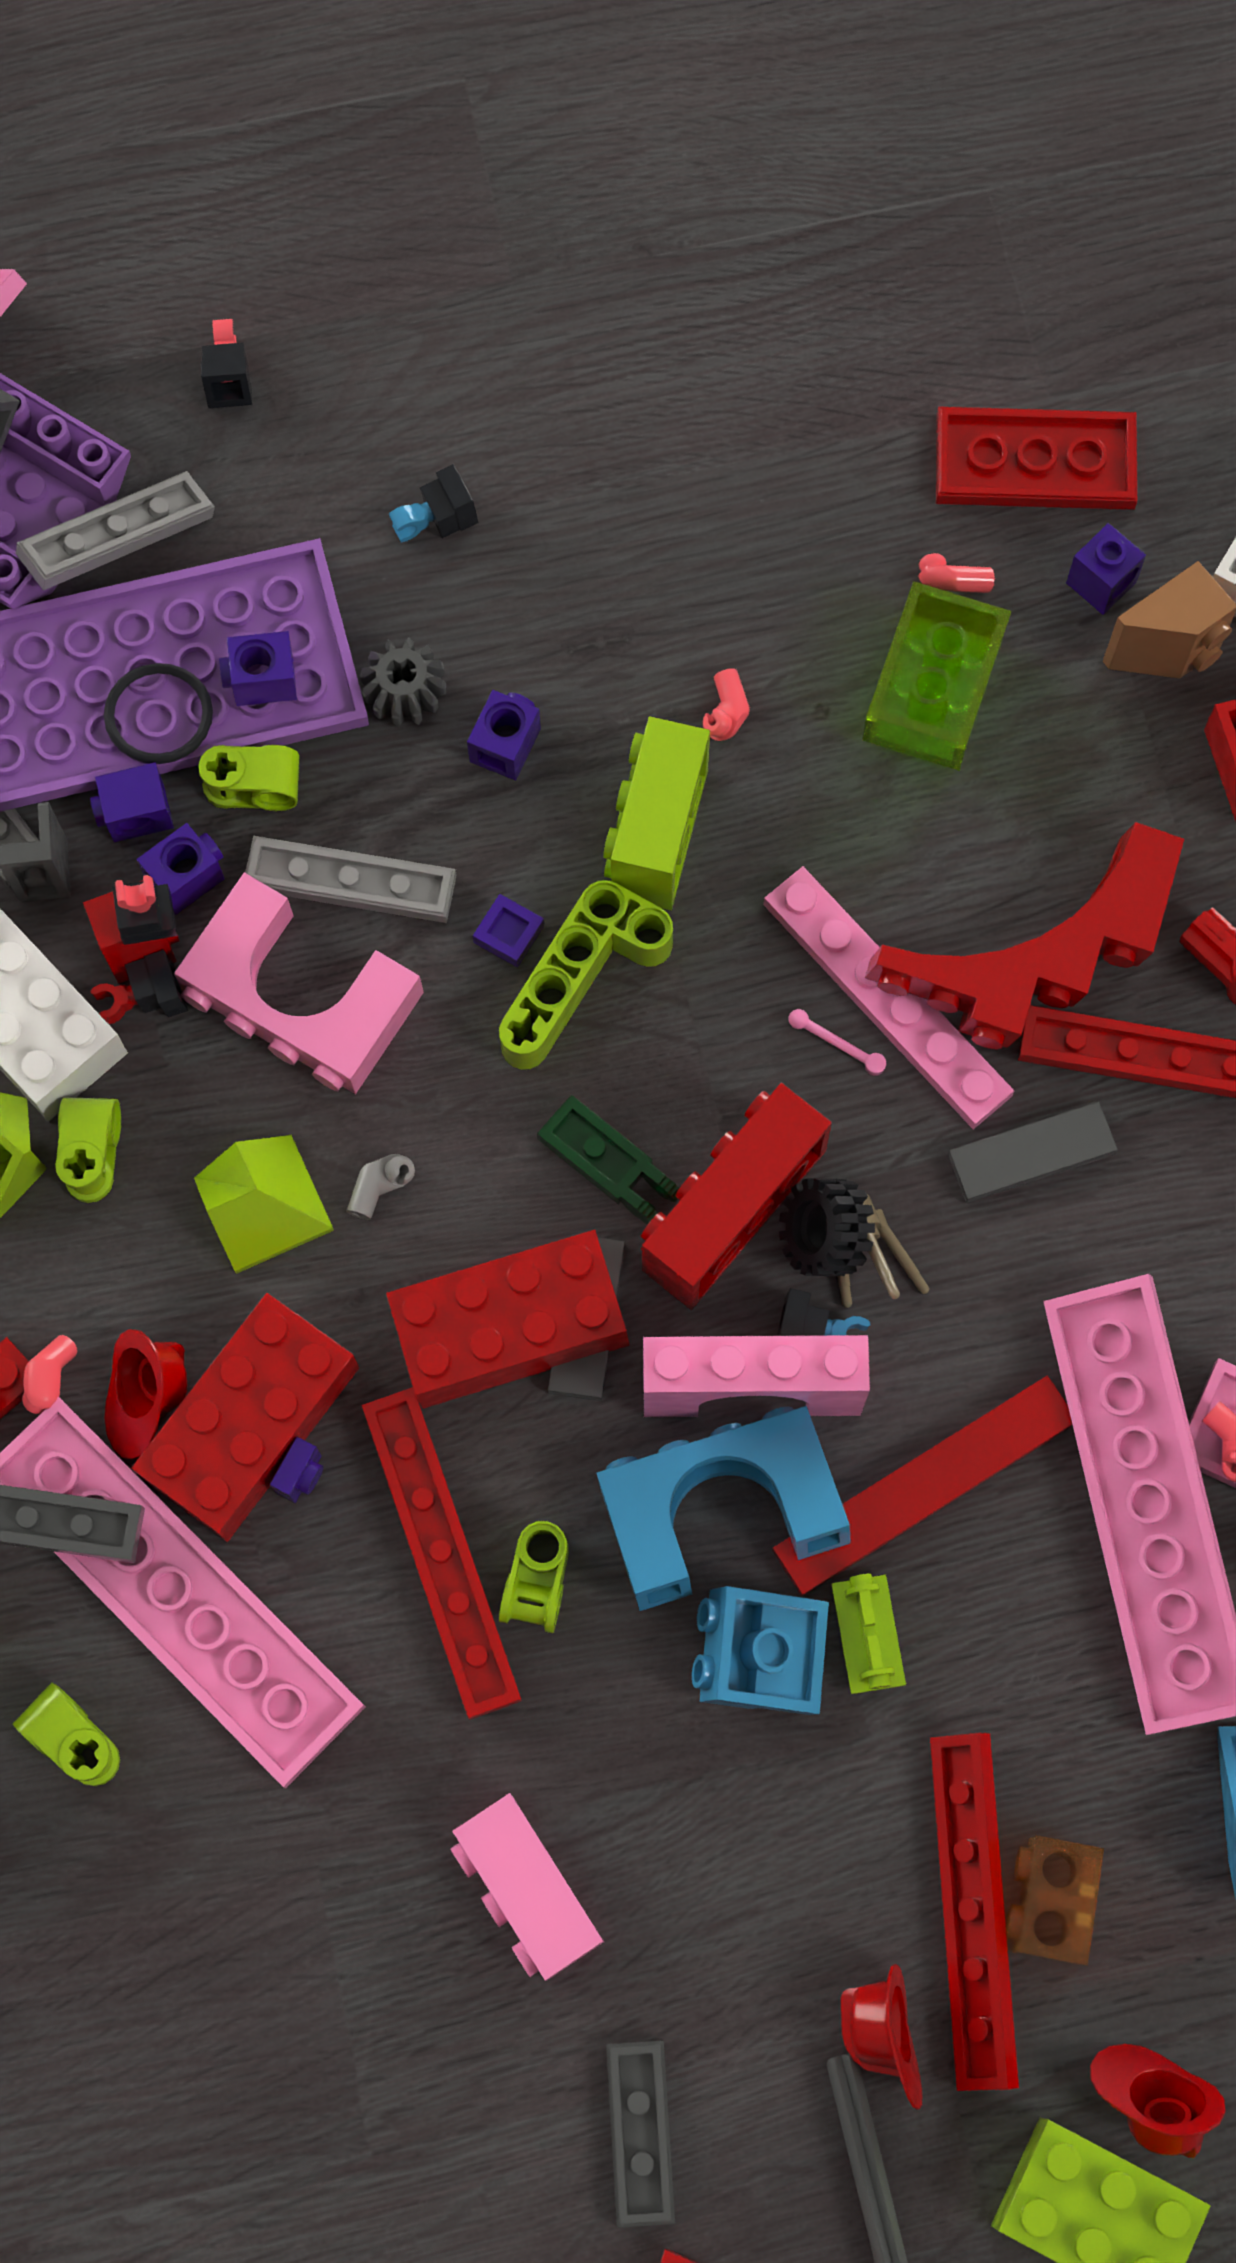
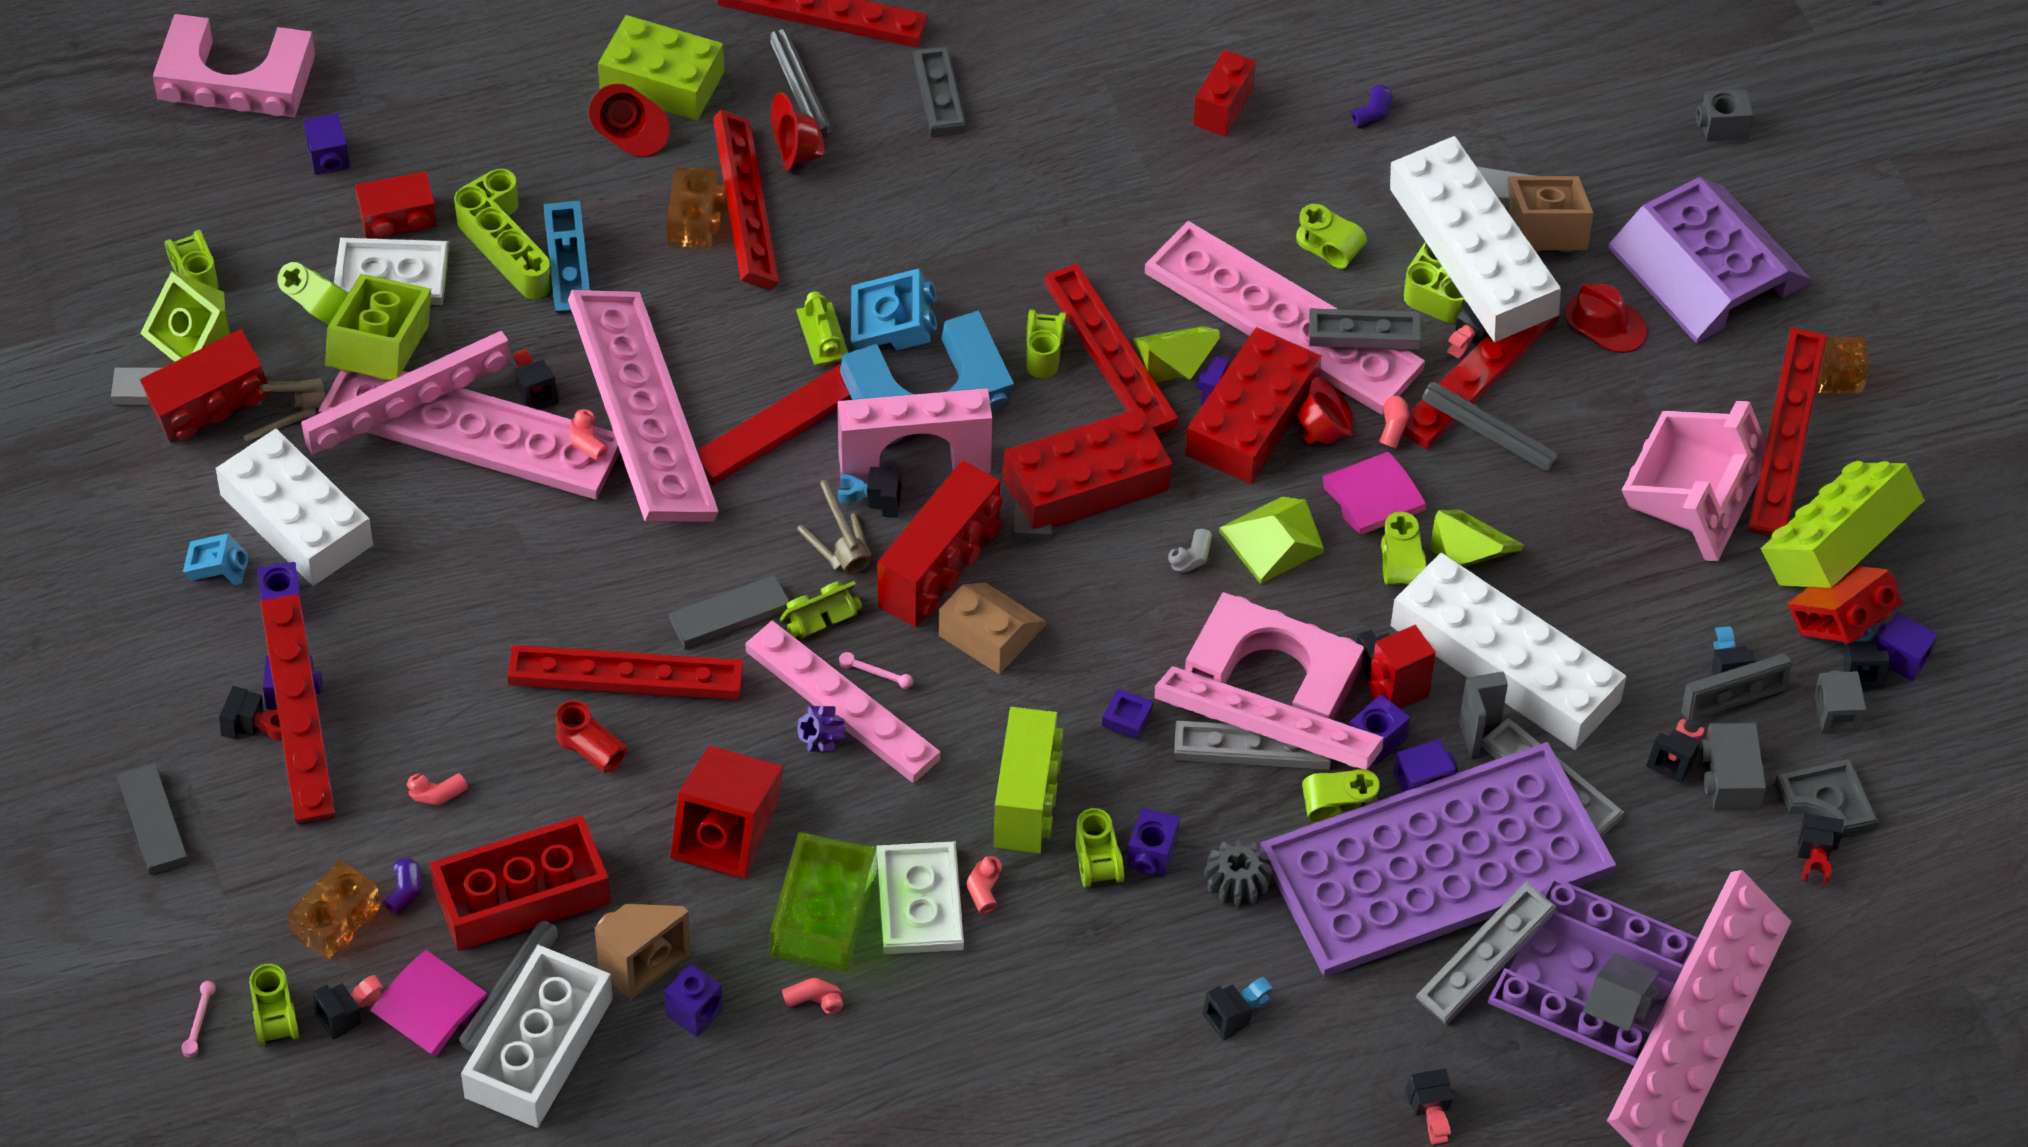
camera: 170 degrees right, 20 degrees down
(103, 1256) = (1373, 492): none -> dark pink slope
(143, 911) = (1388, 636): black piece -> none
(167, 757) = (1419, 852): black tyre -> none
(176, 2058) = (1224, 93): none -> red brick
(268, 649) = (1345, 862): dark purple brick -> none
(323, 883) = (1269, 718): none -> bright pink plate
(340, 1535) = (1175, 352): none -> lime slope
(525, 1889) = (1025, 188): bright pink brick -> none
(576, 977) = (1078, 682): lime beam -> none
(577, 726) = (1097, 855): none -> lime piece
(604, 1157) = (1032, 577): dark green hinge -> none
(673, 1089) = (987, 625): none -> medium nougat slope
(810, 702) = (920, 897): none -> tile
(846, 1233) = (870, 529): black tyre -> none
(921, 930) = (821, 728): none -> dark purple gear
(928, 1132) = (807, 613): none -> lime hinge
(998, 986) = (722, 714): red arch -> none
(1036, 458) = (752, 1099): red tile -> none
(1049, 833) = (725, 811): none -> red slope

